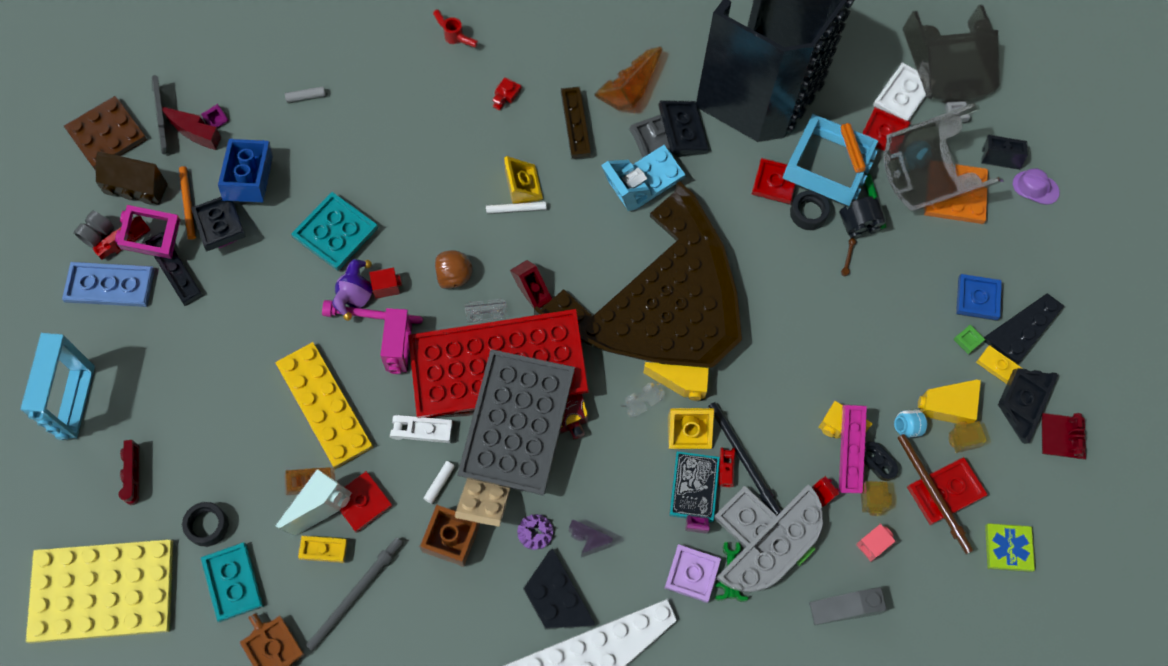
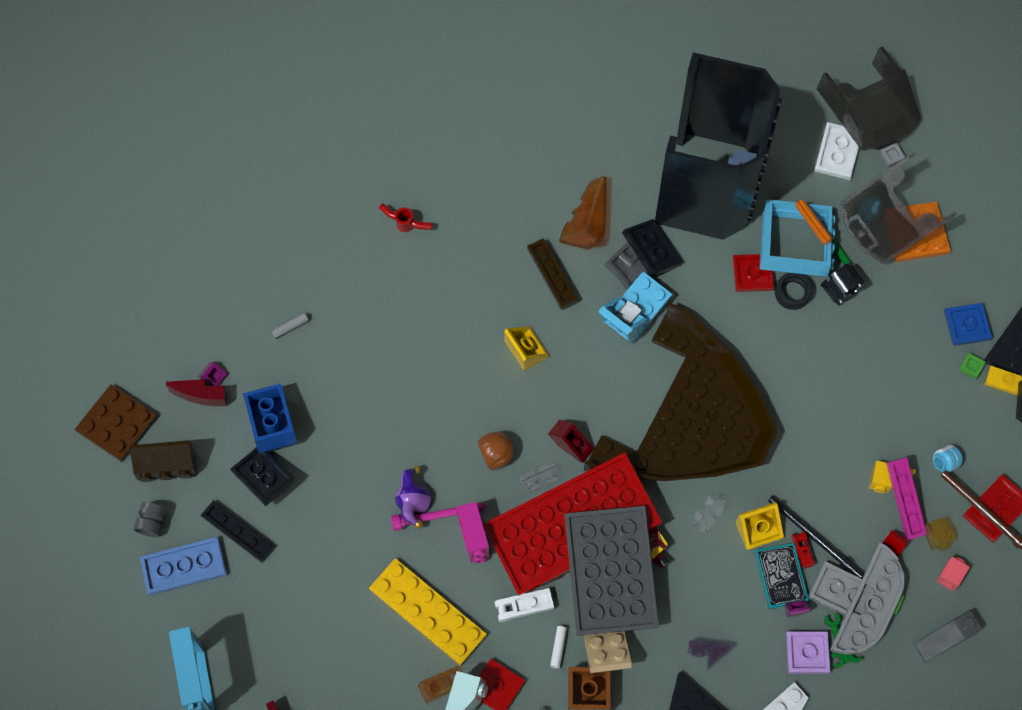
camera: 15 degrees left, 0 degrees up
(109, 245) = (178, 518): red hinge -> none
(155, 88) = (161, 388): dark grey piece -> none
(170, 234) = (184, 517): dark pink window -> none
(187, 203) = (223, 466): orange bar -> none
(334, 231) = (372, 448): teal plate -> none
(385, 283) = (439, 482): red brick -> none
(506, 91) = (476, 263): red plate -> none
(516, 207) = (528, 372): white bar -> none
(539, 540) = (652, 669): medium lavender gear -> none
(684, 380) = (738, 484): yellow slope -> none
(845, 271) = (843, 338): reddish brown hinge -> none
(880, 460) = (932, 499): black plate -> none
(882, 124) = (832, 190): red tile -> none
(952, 402) = (976, 429): yellow slope -> none
(967, 436) = (998, 454): clear yellow brick -> none
(1004, 152) = (946, 180): black hinge -> none
(1036, 186) = (984, 204): medium lavender piece -> none

